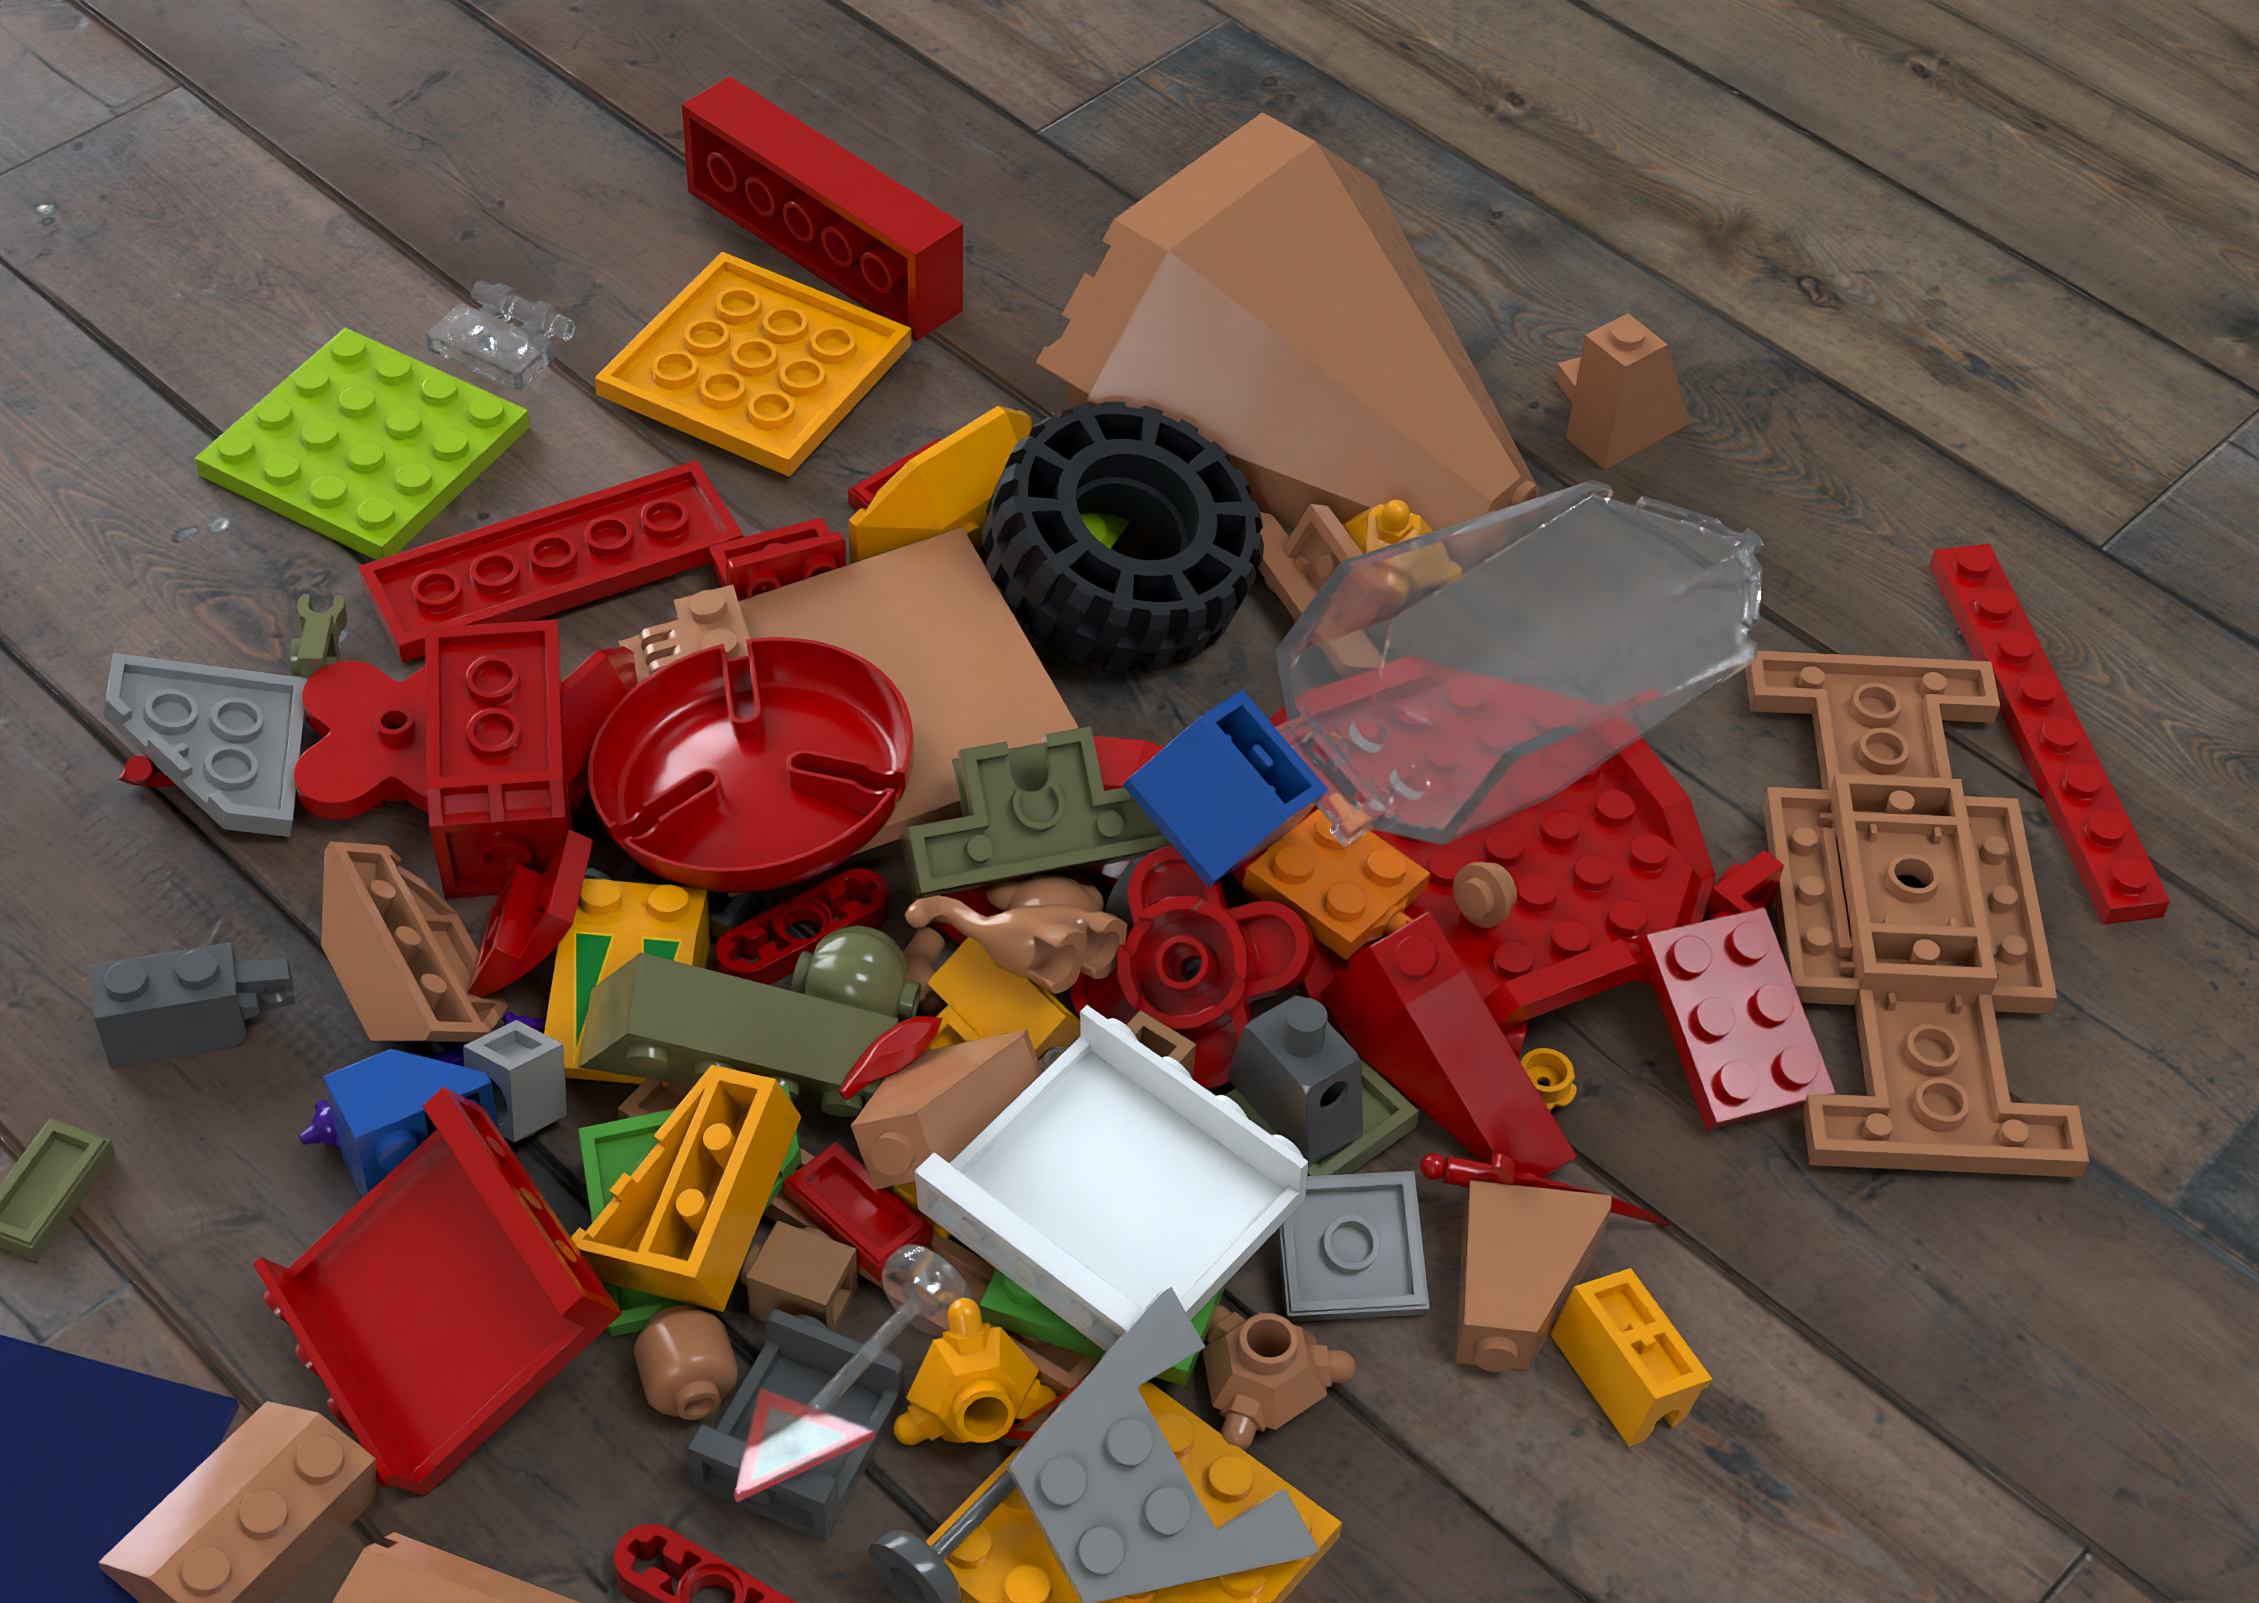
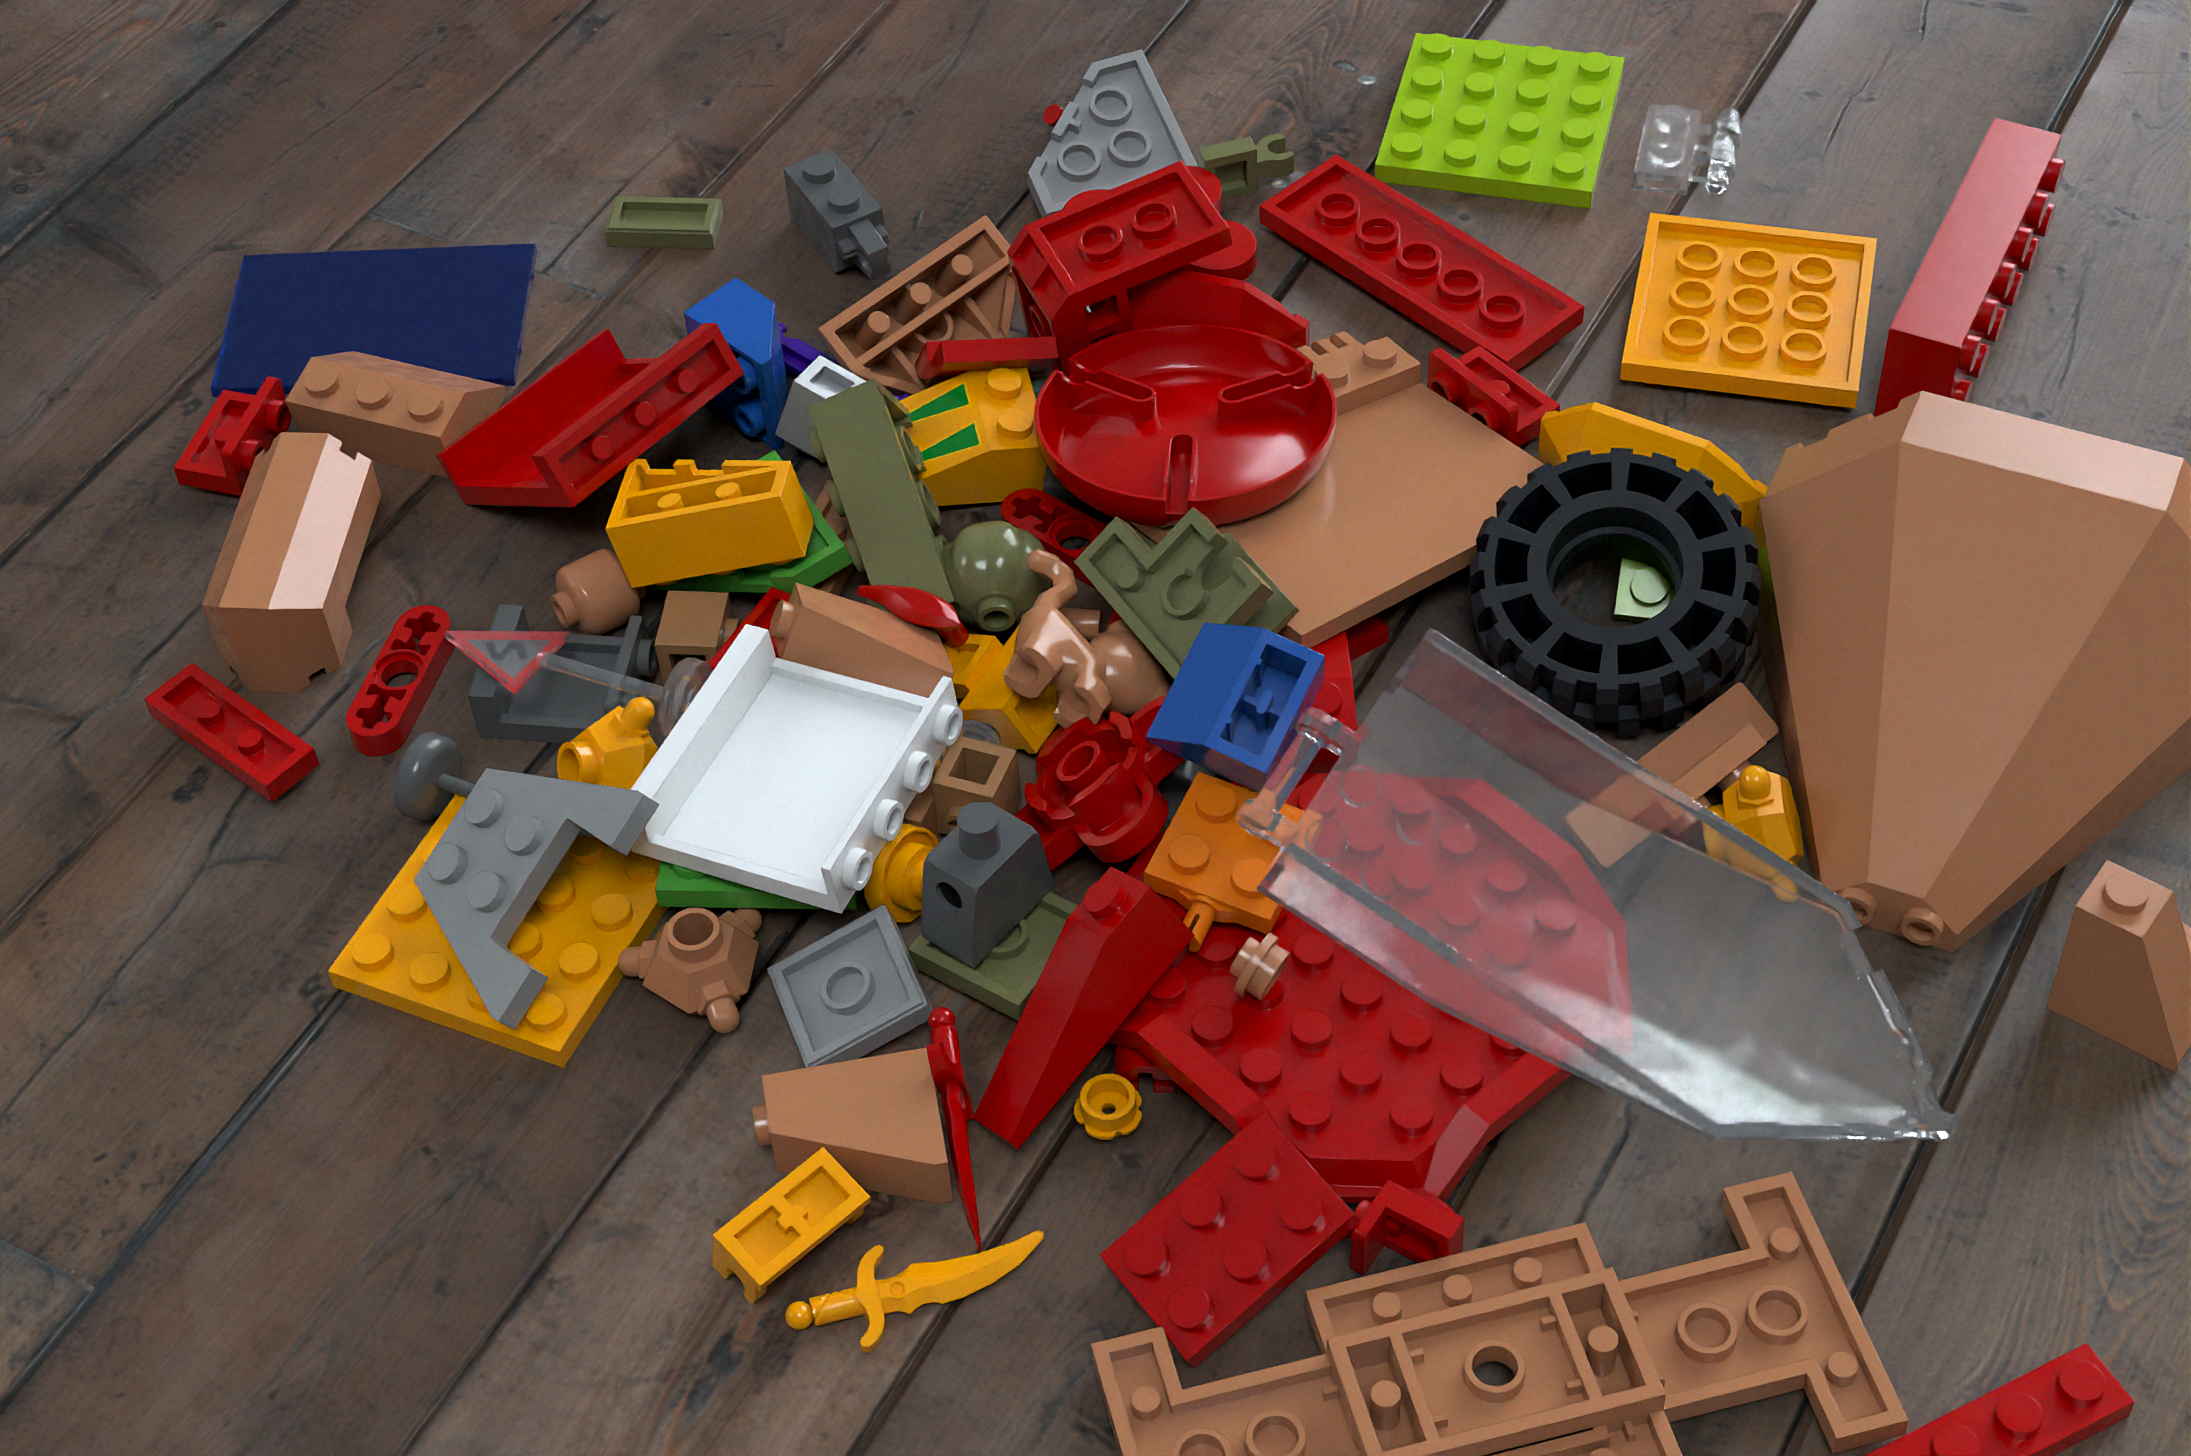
camera: 80 degrees right, 0 degrees up
(1697, 1273) = (911, 1288): none -> light orange piece

